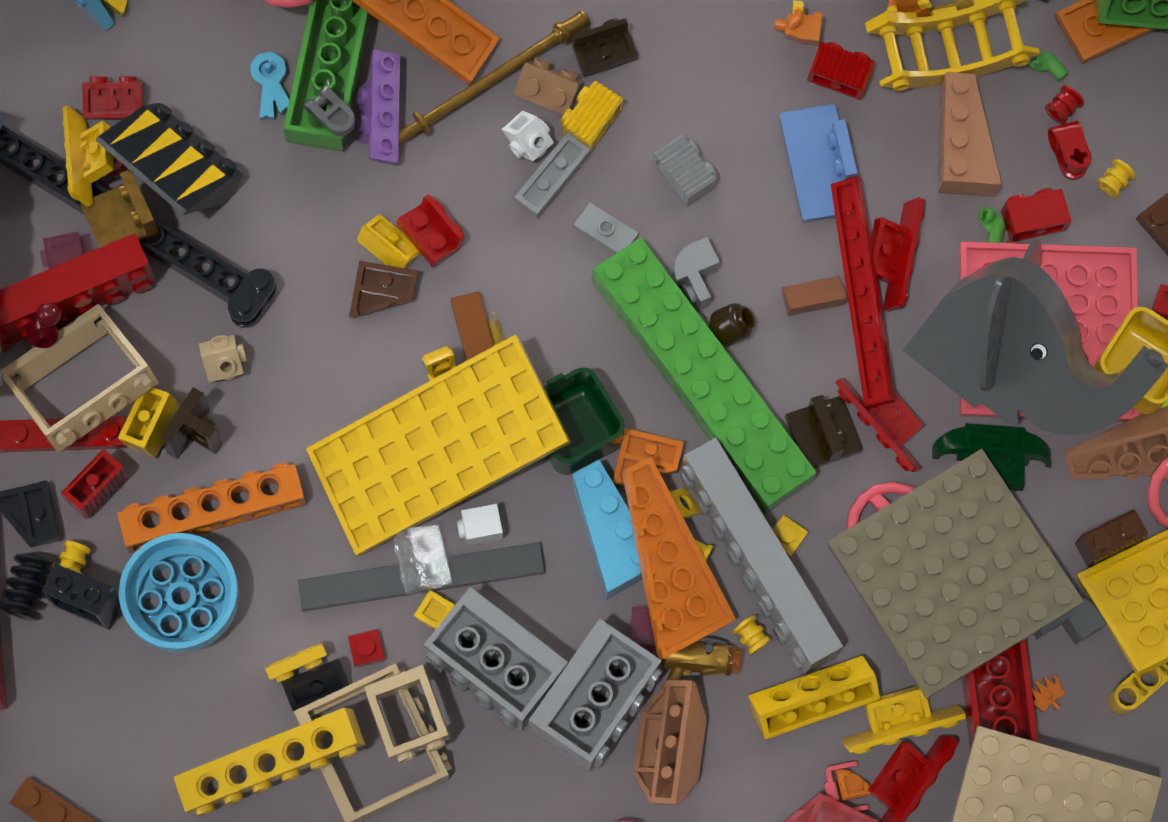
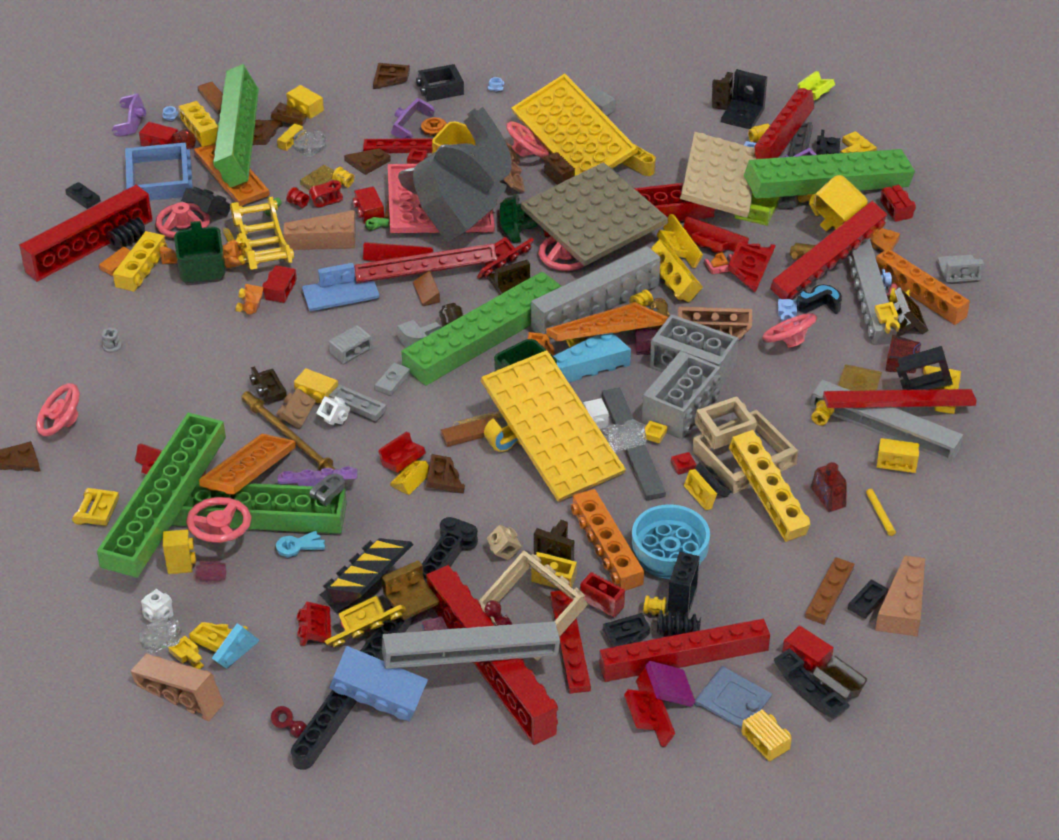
camera: 90 degrees left, 30 degrees down
(1119, 138) = (317, 177): none -> clear yellow plate

